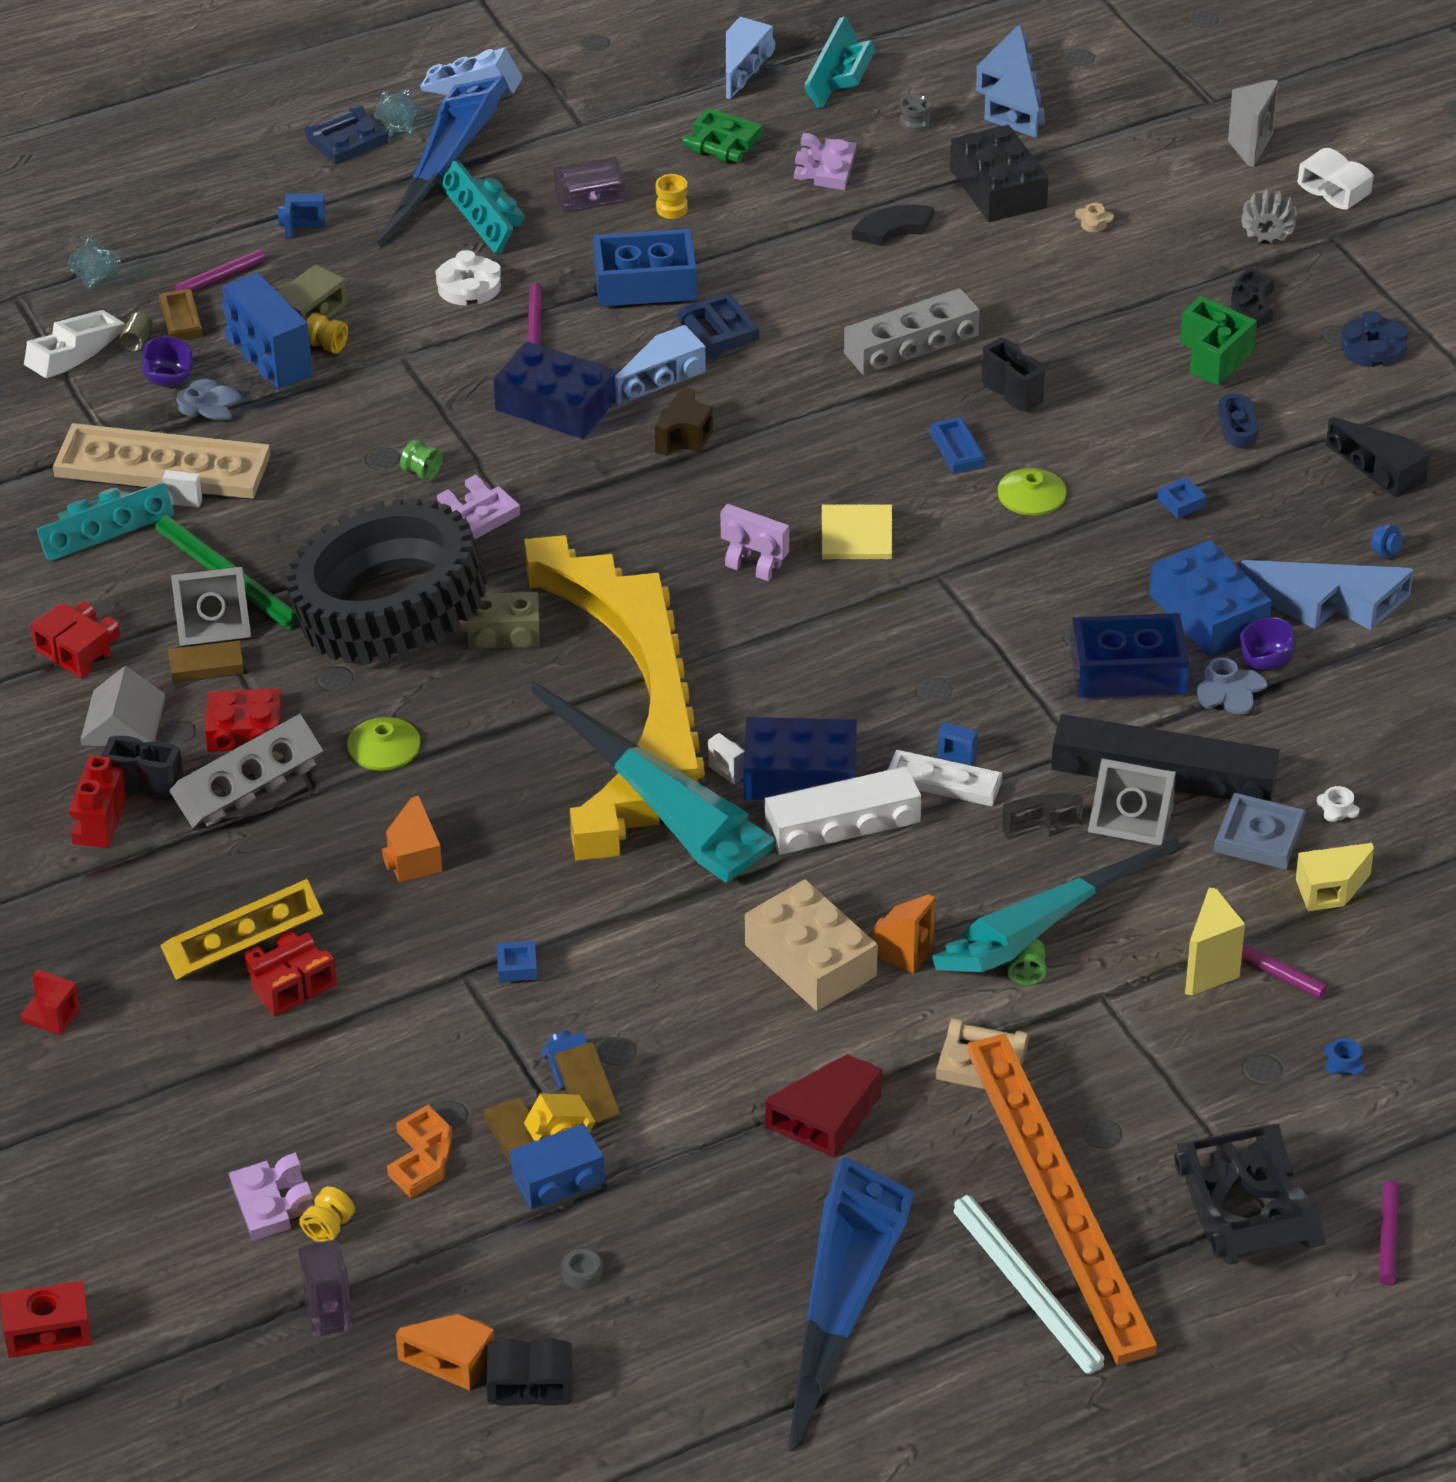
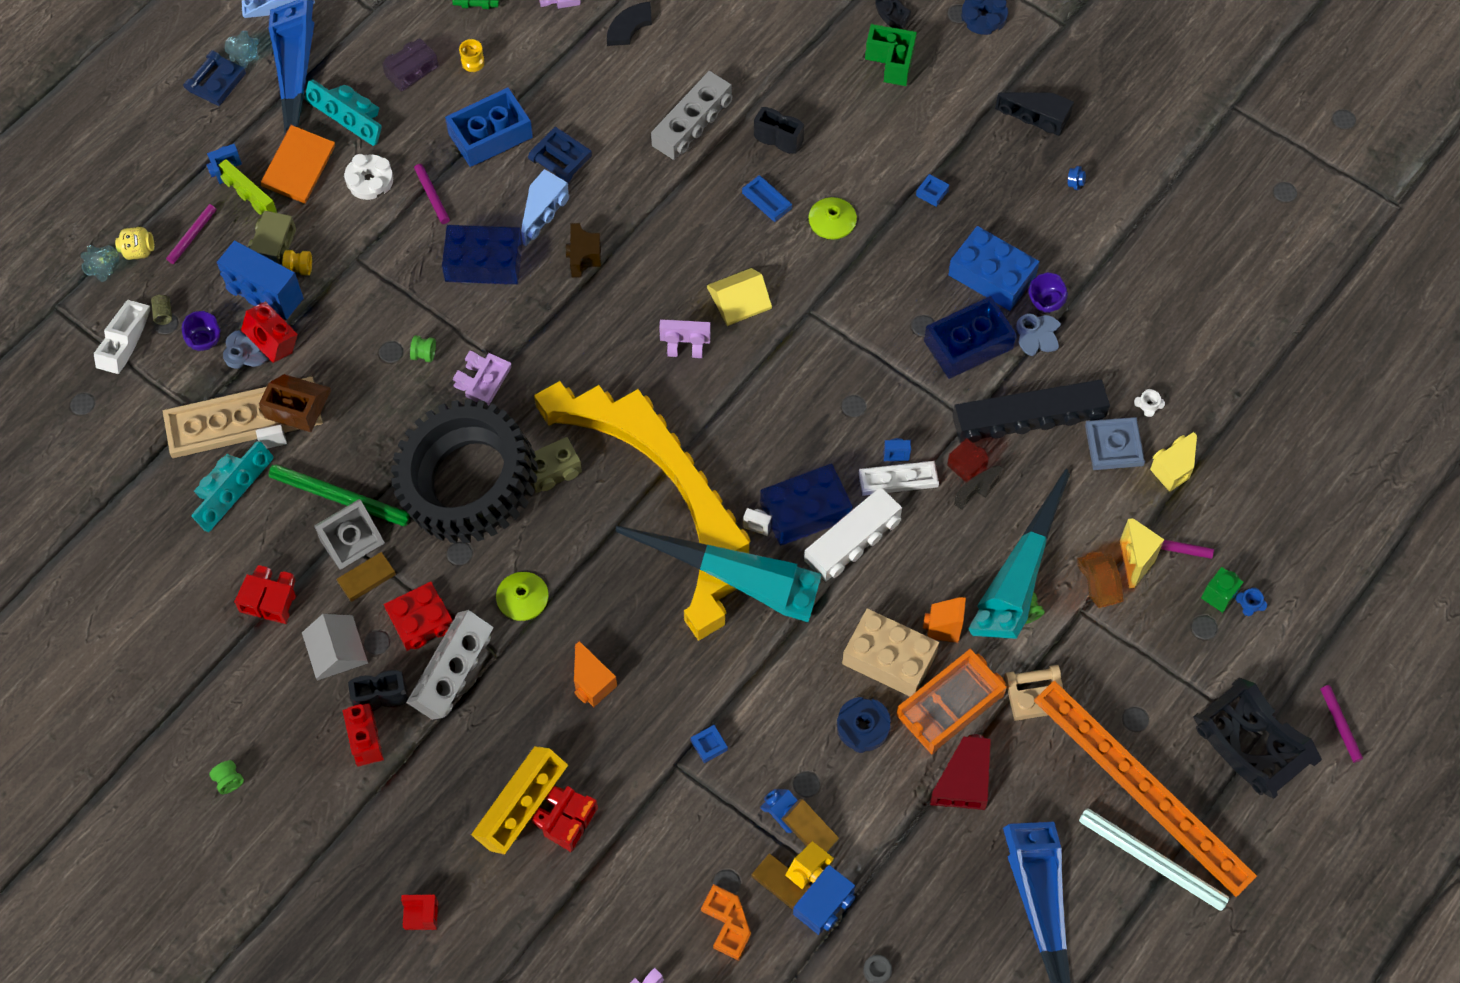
camera: 25 degrees left, 20 degrees up
(146, 257) = (135, 243): none -> light yellow head
(180, 315) = (183, 282): pearl gold tile -> none
(225, 454) = (294, 402): none -> reddish brown slope
(245, 384) = (269, 332): none -> red brick
(310, 241) = (245, 188): none -> lime plate
(389, 241) = (298, 164): none -> orange tile
(729, 1026) = (865, 709): none -> dark blue plate
(861, 1019) = (951, 700): none -> door
(1044, 776) = (968, 460): none -> clear red brick
(1132, 802) = (1029, 456): light grey slope -> none
(1145, 959) = (1102, 578): none -> clear orange brick
(1238, 420) = (937, 113): dark blue plate -> none
(1307, 1026) = (1222, 589): none -> green brick
(1318, 590) = (1051, 236): medium blue slope -> none

